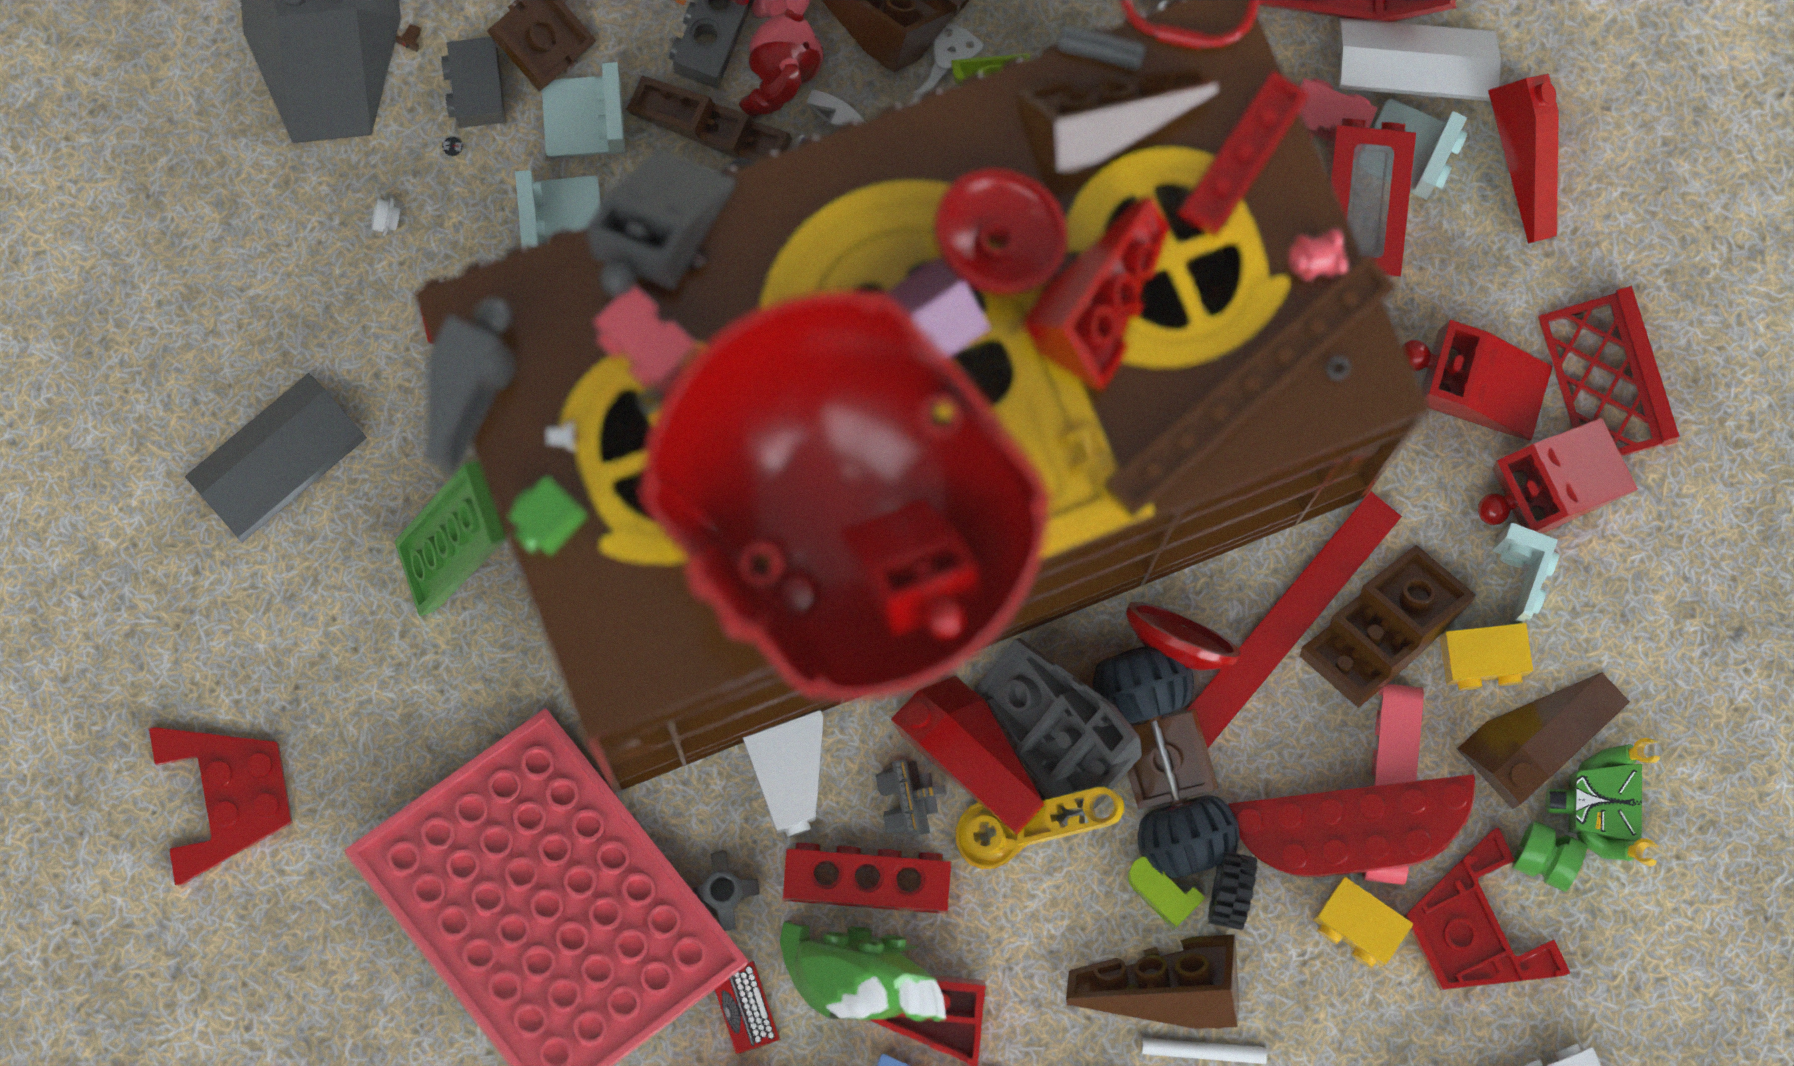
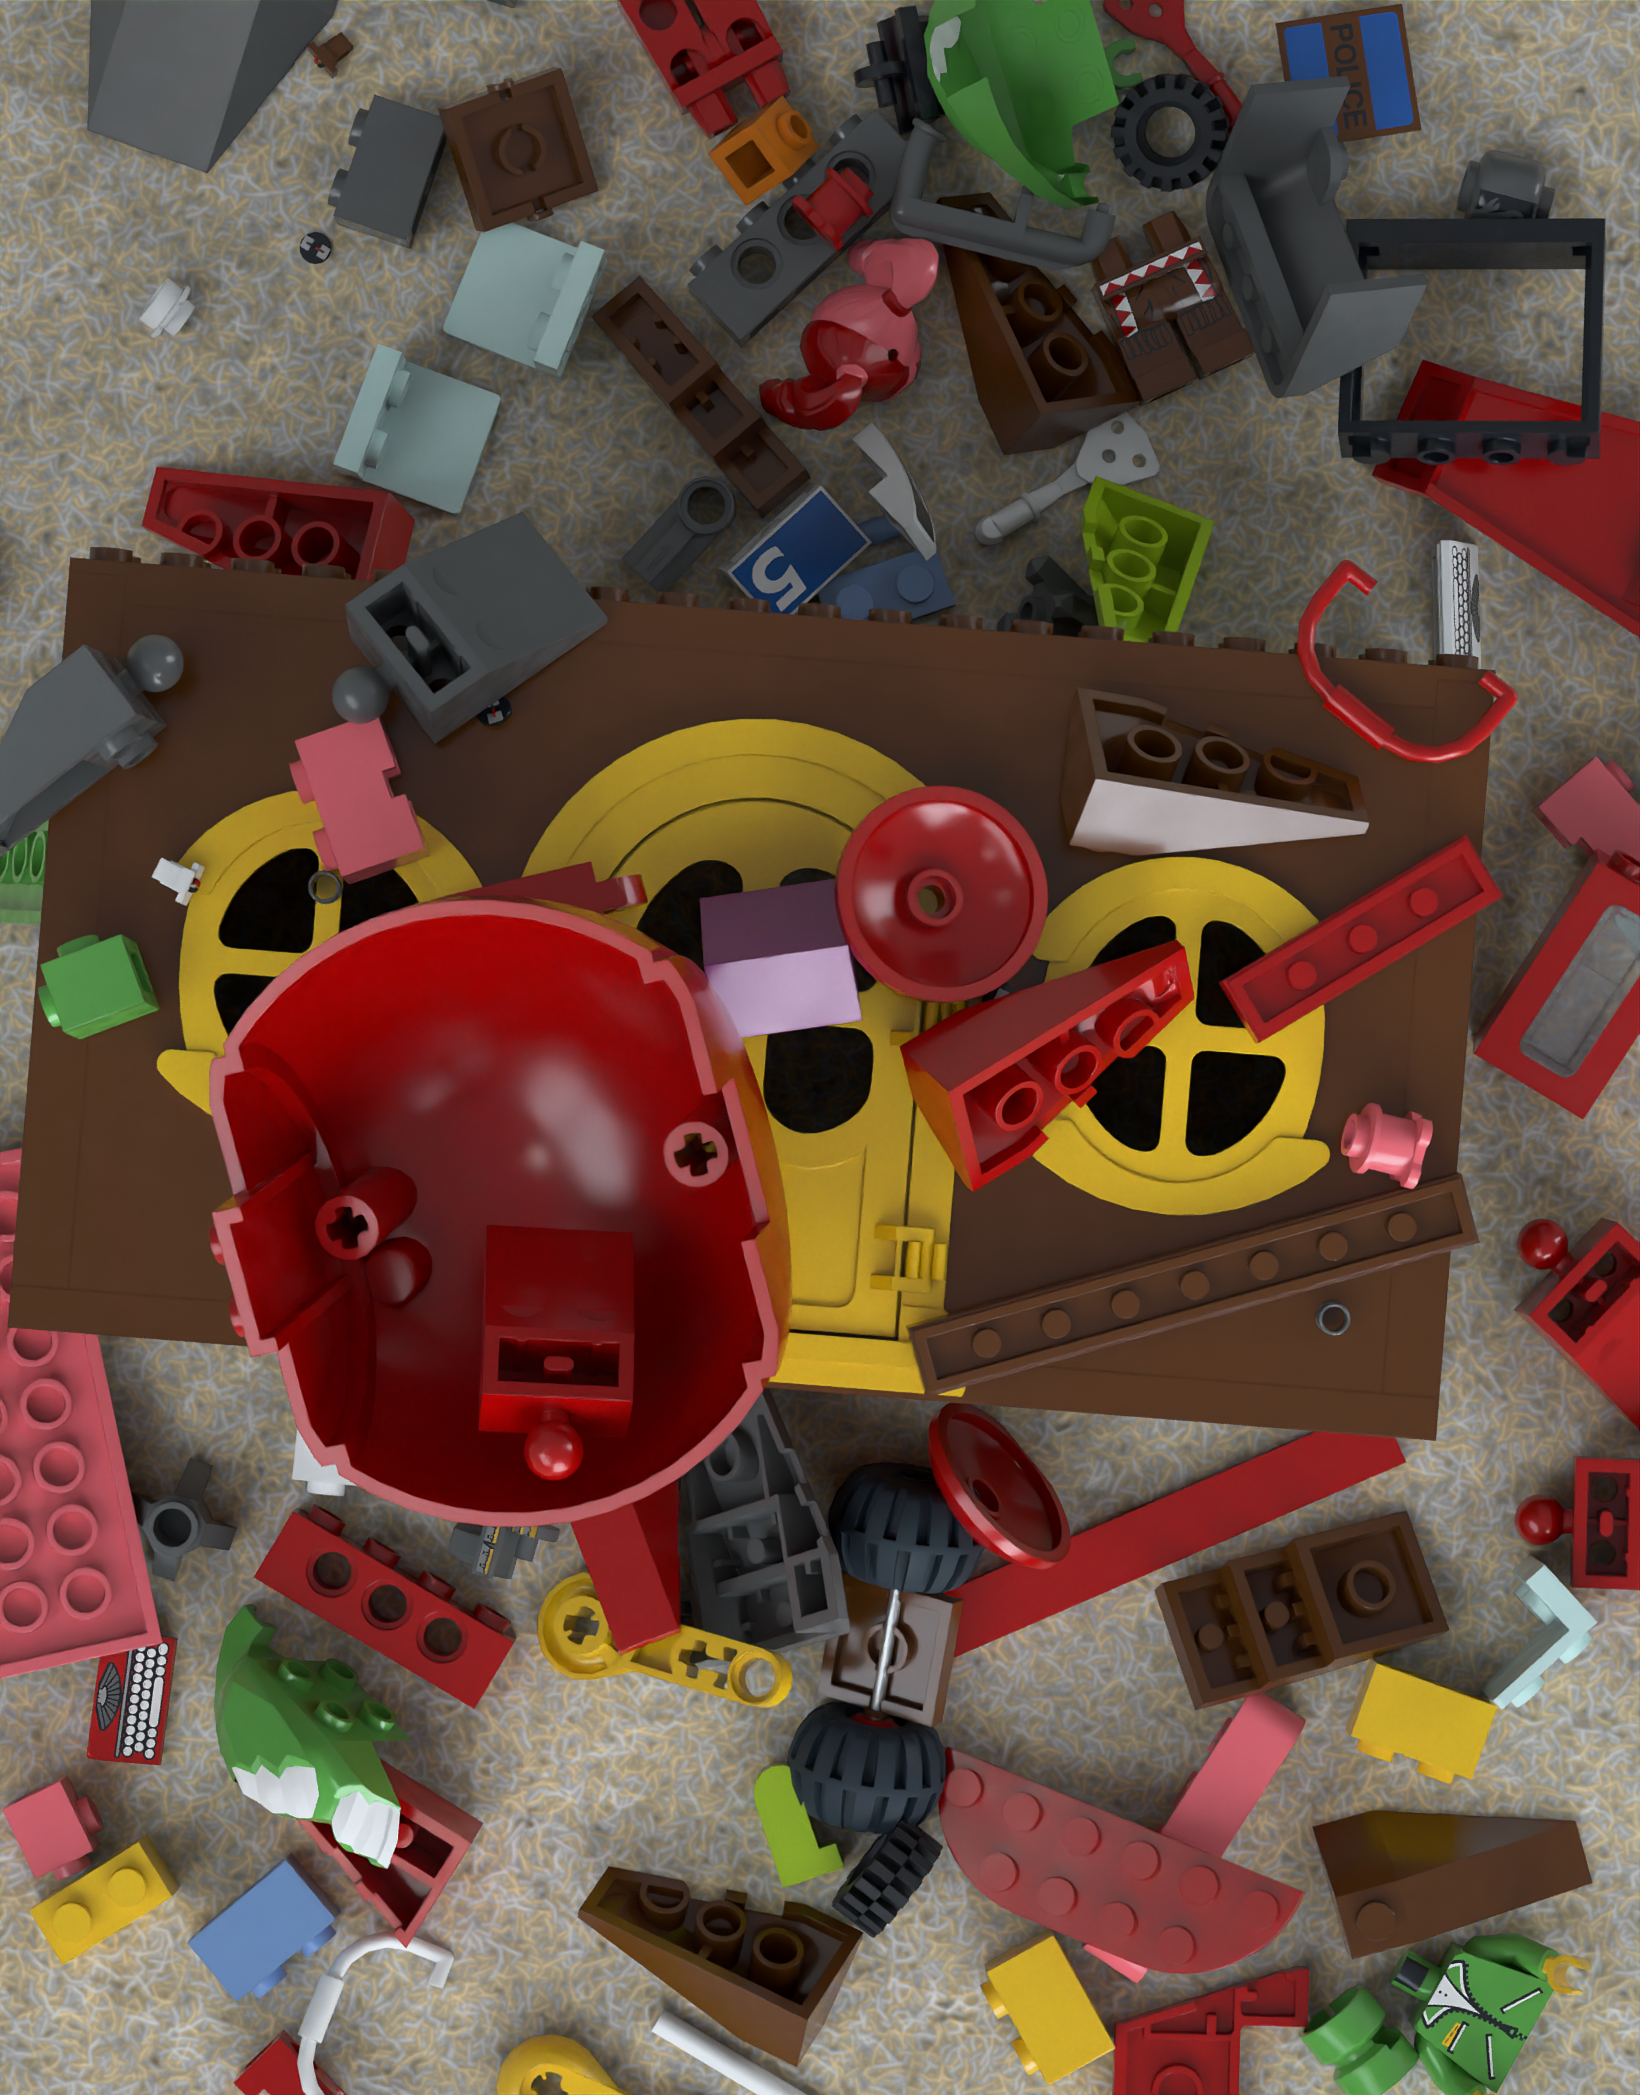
camera: 30 degrees right, 10 degrees up
(1101, 46) = (1235, 676): dark grey axle -> none

